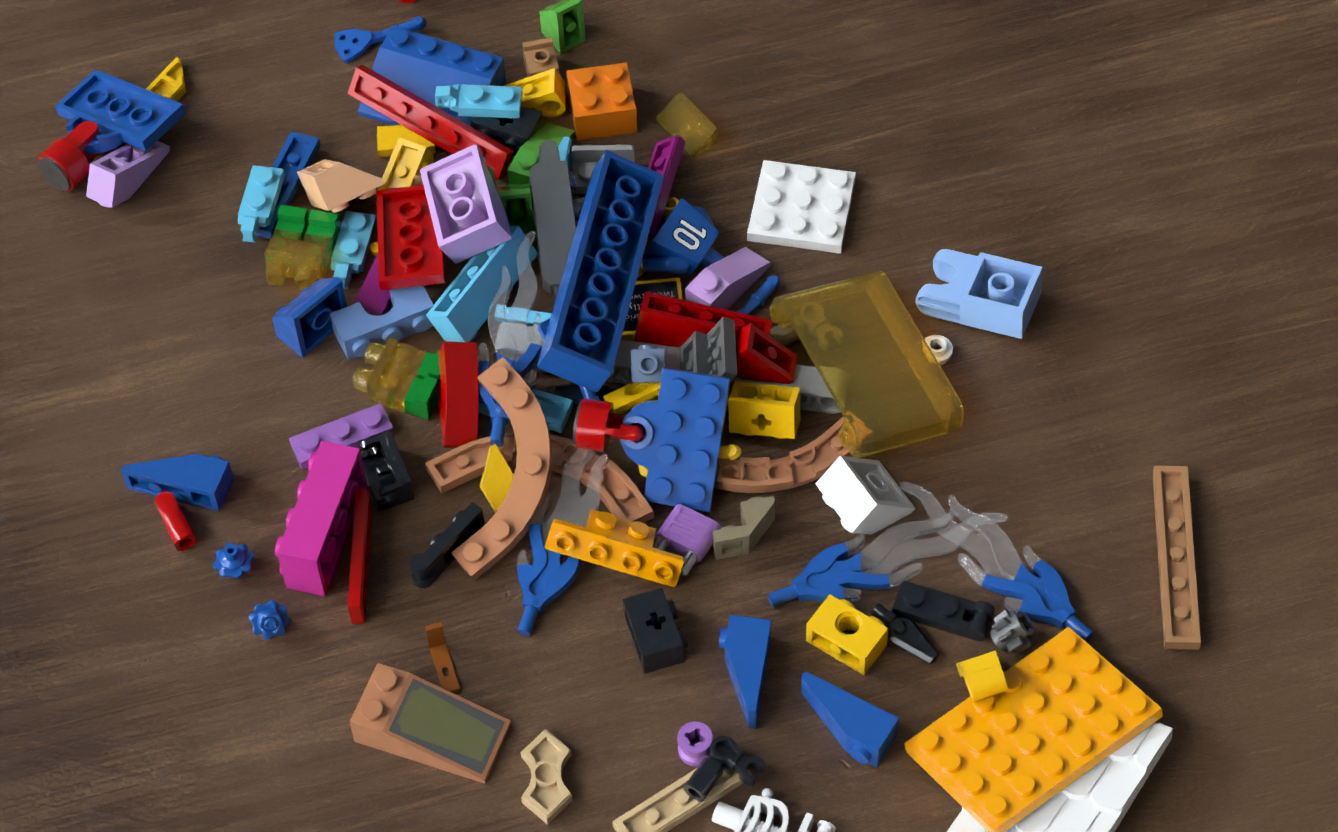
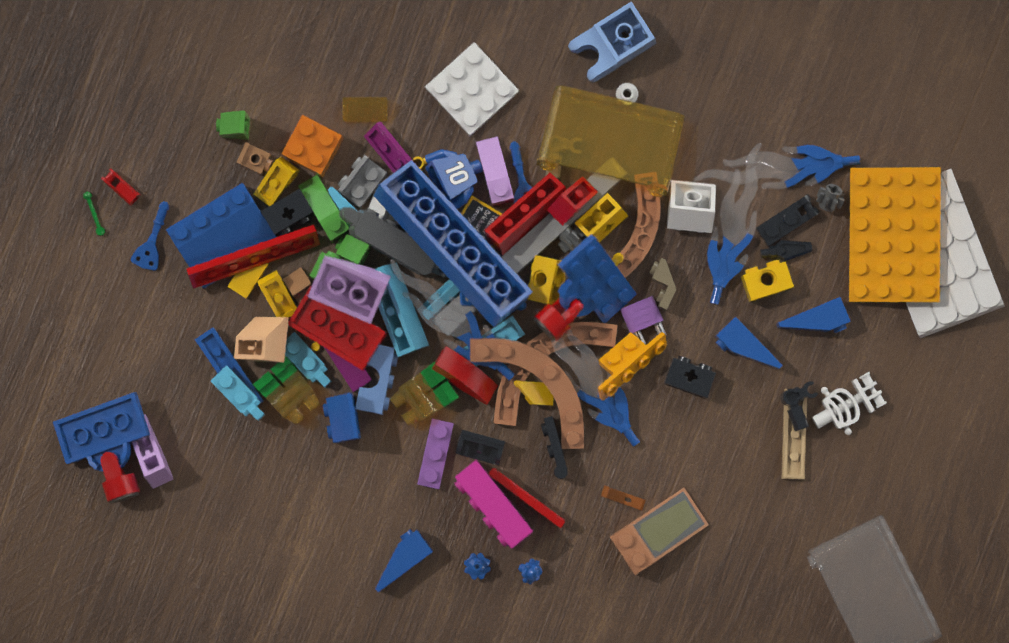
camera: 55 degrees left, 30 degrees up
(170, 81) = (96, 385): yellow tile -> none
(175, 521) = (427, 580): red bar -> none
(480, 100) = (266, 218): medium azure hinge -> none
(546, 792) = (720, 485): tan tile -> none
(647, 364) = (533, 264): sand blue bracket -> none
(696, 751) = (767, 407): medium lavender wheel -> none
(711, 352) = (557, 230): dark grey slope -> none
(983, 676) = (845, 235): yellow plate -> none
(1176, 558) = (848, 77): medium nougat plate -> none

